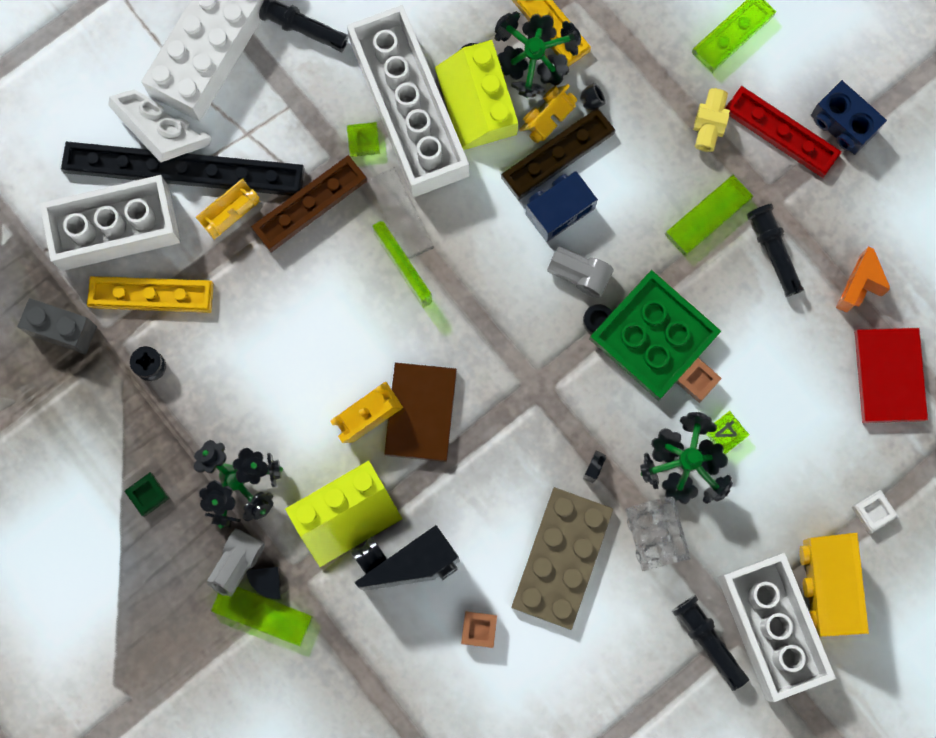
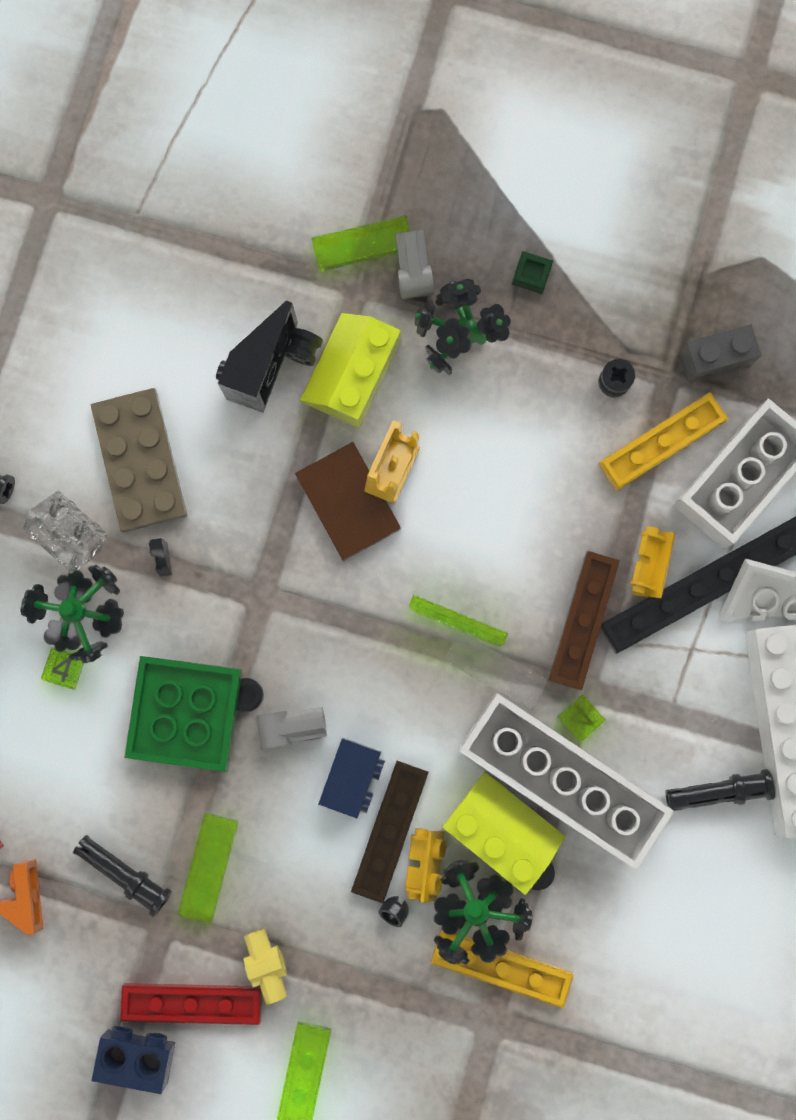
camera: 145 degrees right, 5 degrees up
(266, 582) = (377, 270): black tile -> none
(479, 629) = (169, 351): nougat plate -> none
(698, 380) = (116, 698): nougat plate -> none

